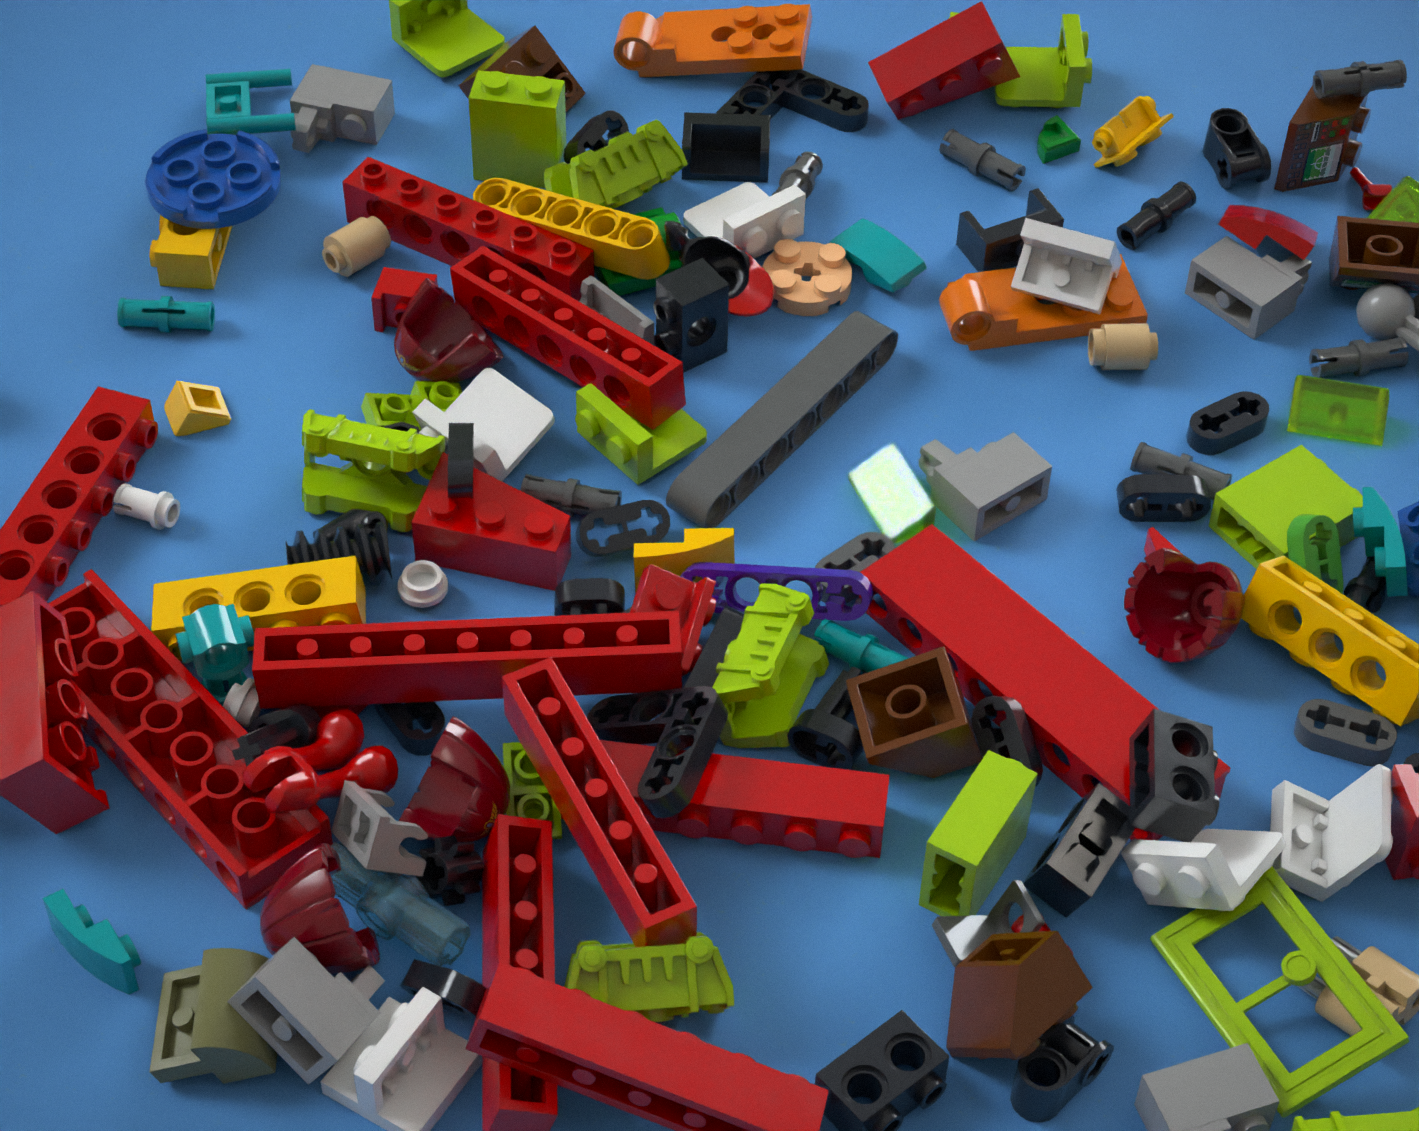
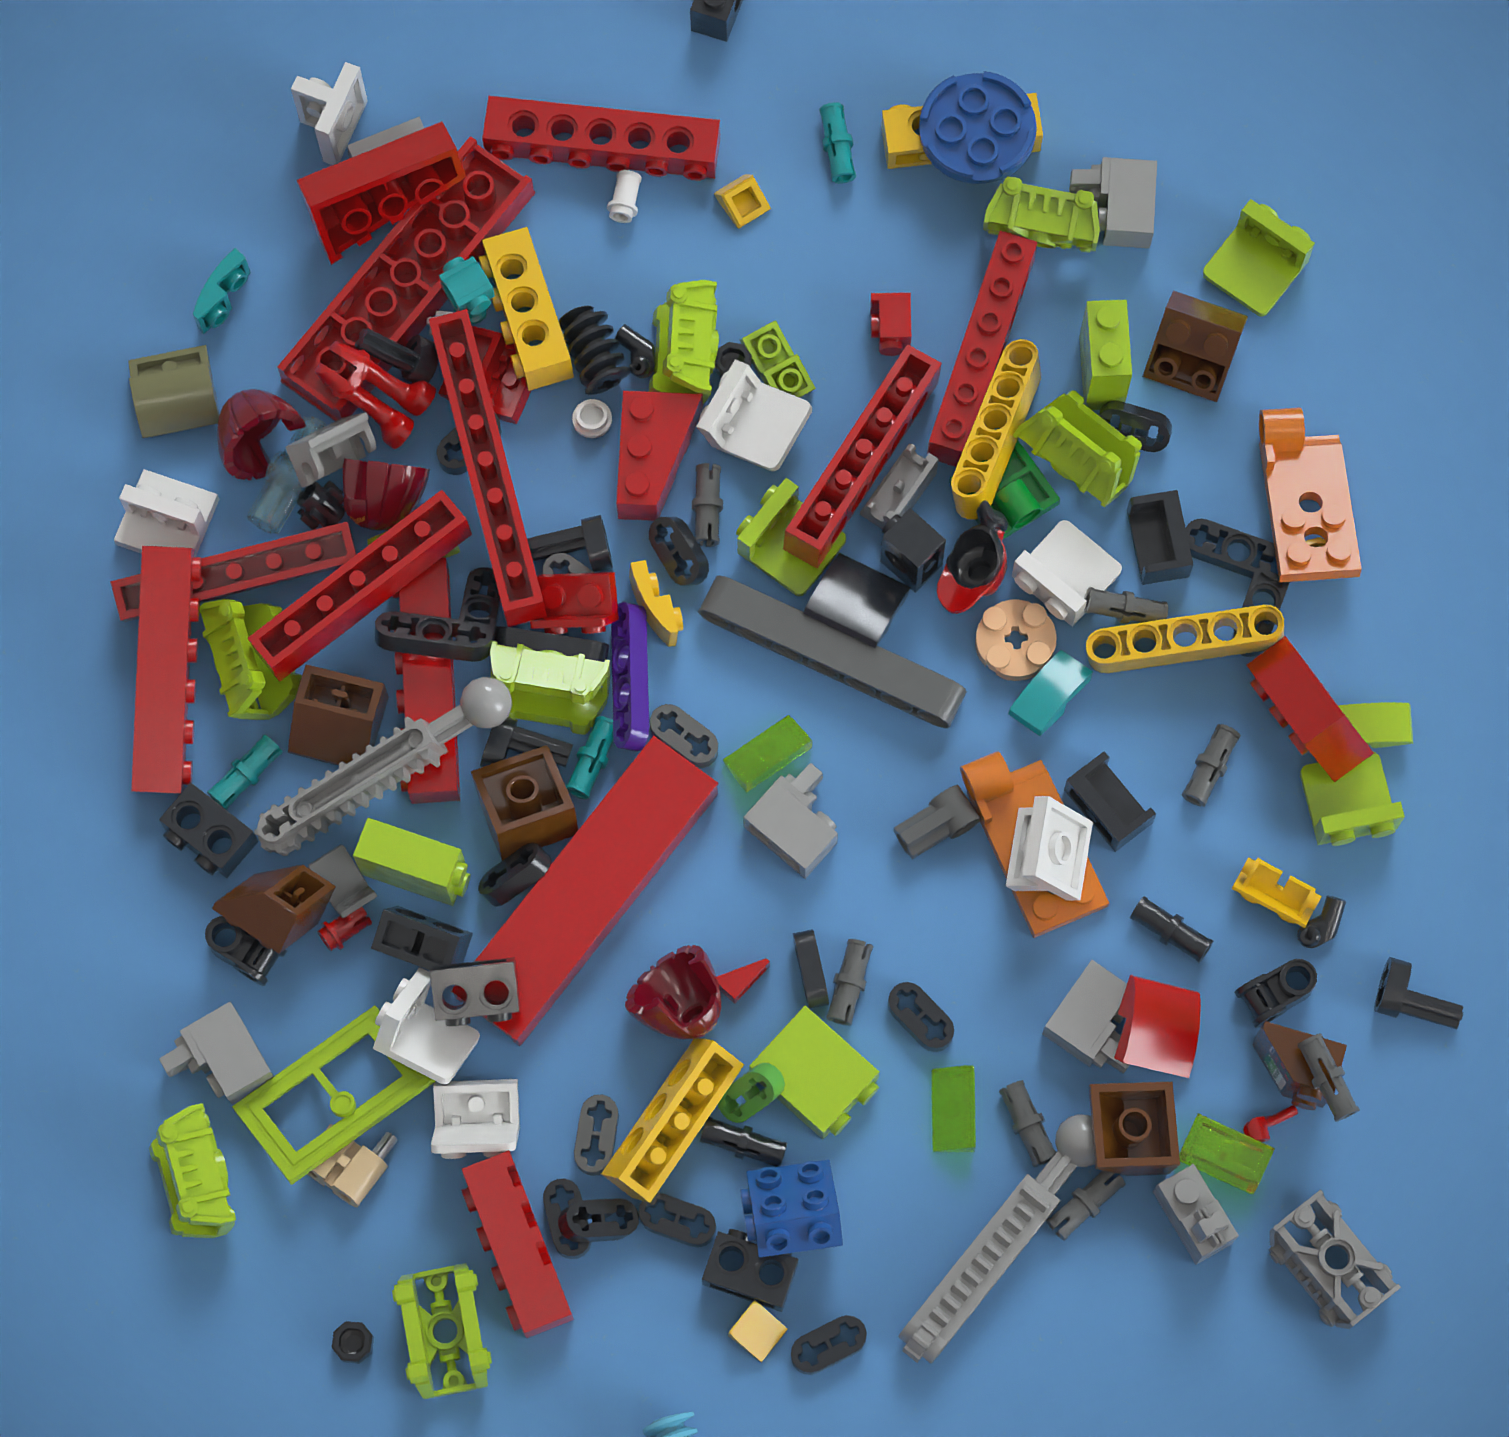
camera: 80 degrees right, 25 degrees up
(230, 102) = (1099, 111): teal plate -> none
(307, 1010) = (175, 448): light grey hinge -> none
(332, 149) = (1044, 215): none -> lime piece
(355, 245) = (950, 264): tan brick -> none
(441, 339) = (846, 364): dark red hair -> none
(457, 990) = (218, 526): black beam -> none
(460, 460) = (675, 407): black beam -> none
(736, 379) = (856, 600): none -> black slope
(757, 897) = (335, 715): none -> reddish brown slope
(799, 1027) = (245, 771): none -> teal pin
(800, 692) = (284, 827): none -> light grey gear
(848, 140) = (1165, 630): none -> yellow beam
(1004, 360) = (946, 816): none -> dark grey piece
(1056, 140) = (1263, 828): green tile -> none
(1122, 346) = (984, 916): tan brick -> none
(1178, 125) = (1323, 927): none -> black arm
(1249, 74) = (1395, 998): none -> black piece
(1382, 540) = (789, 1139): teal slope -> none

